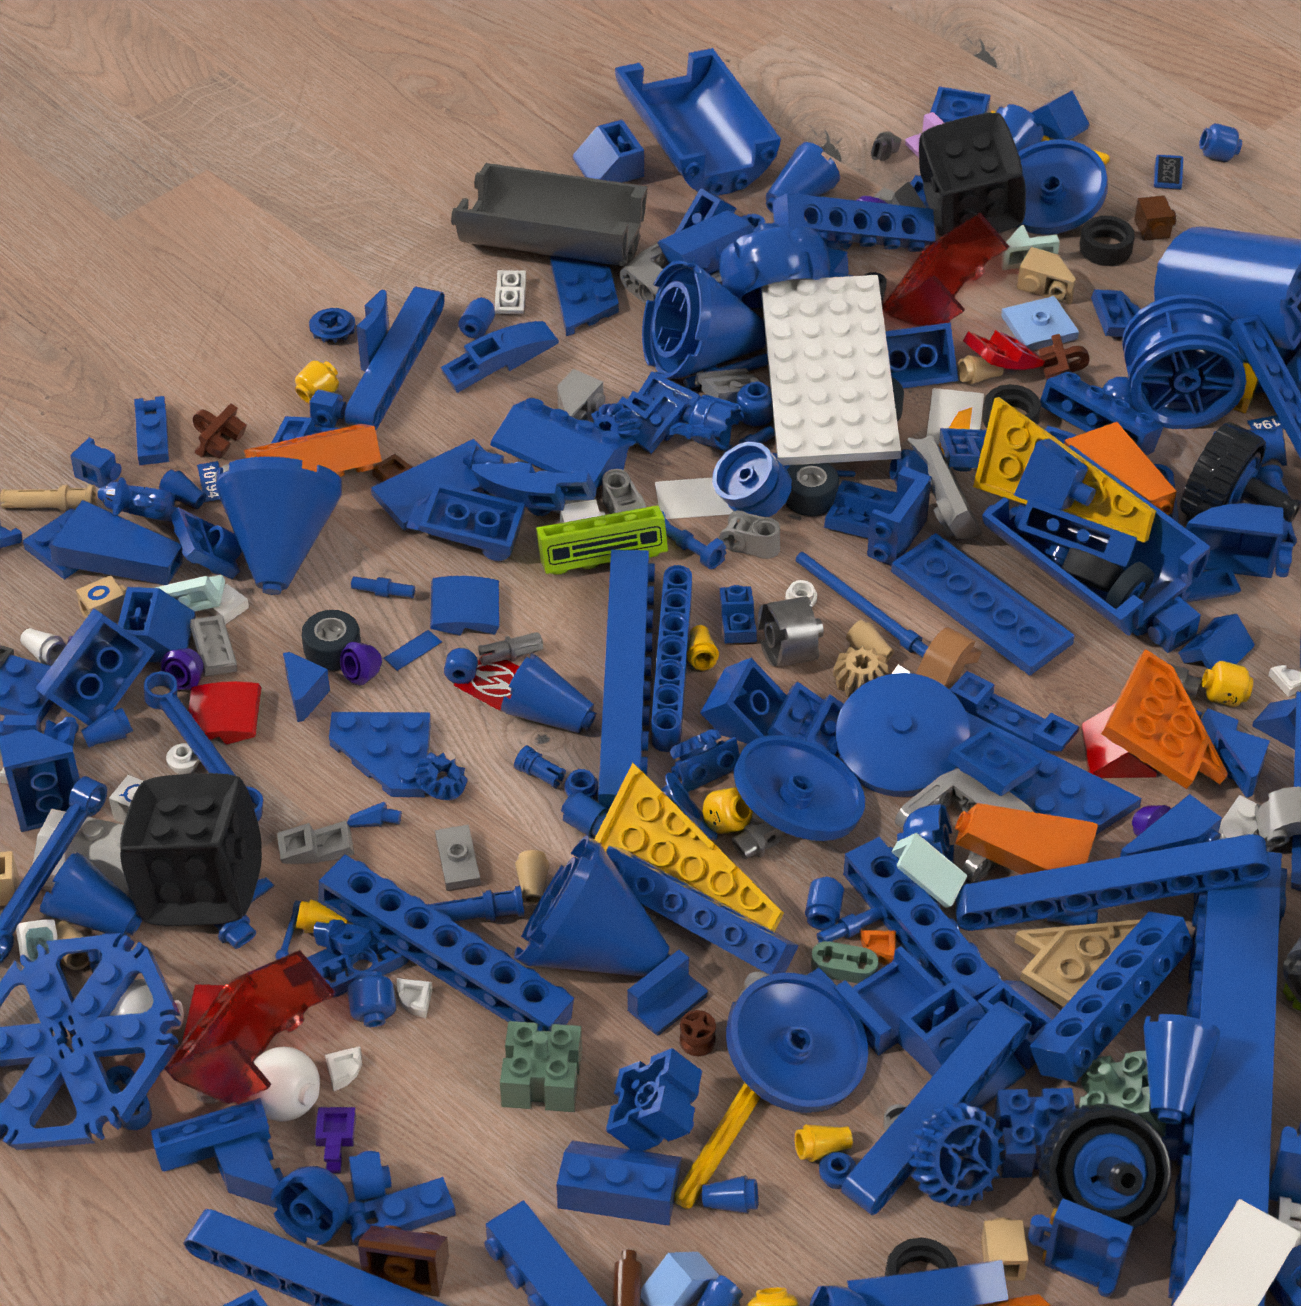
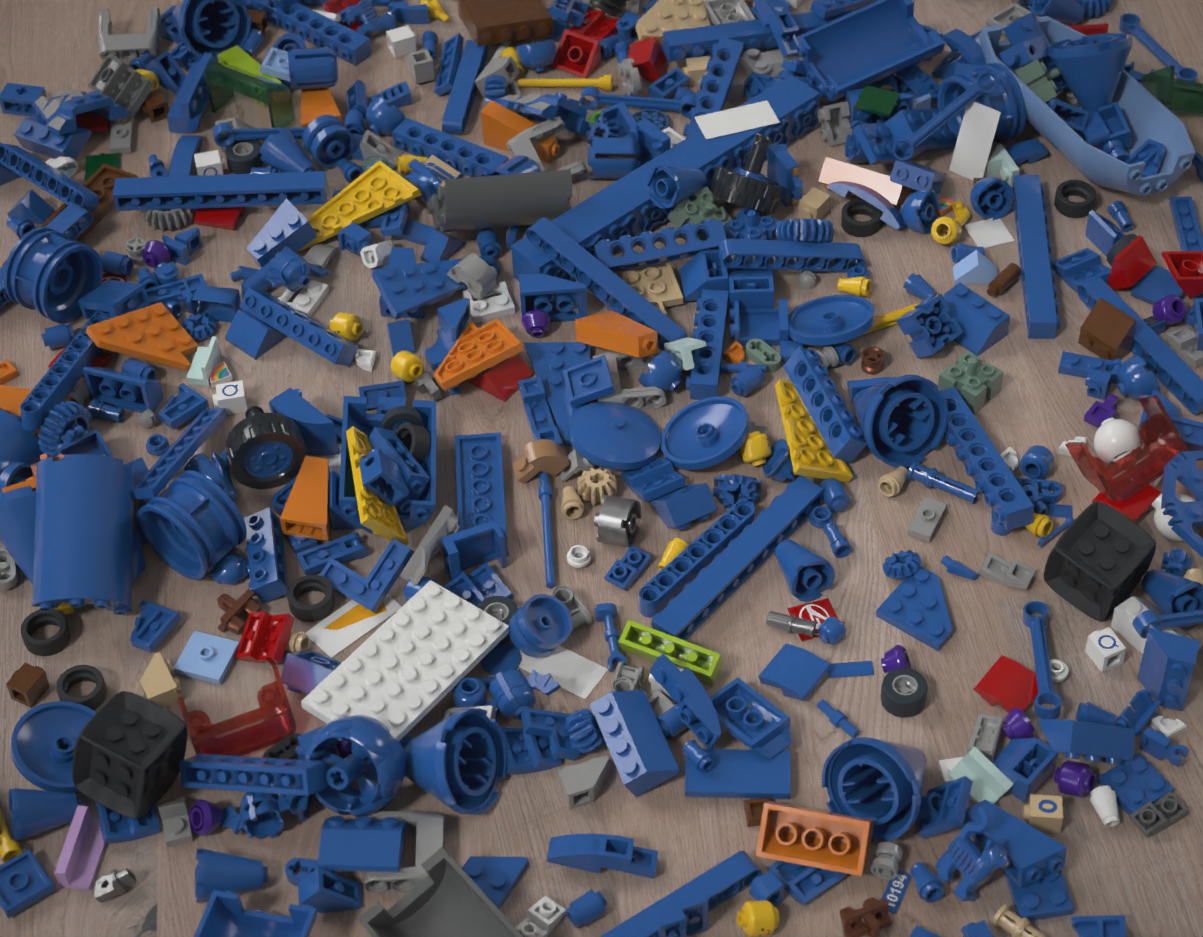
camera: 140 degrees left, 0 degrees up
(306, 683) = (943, 670): blue slope -> none

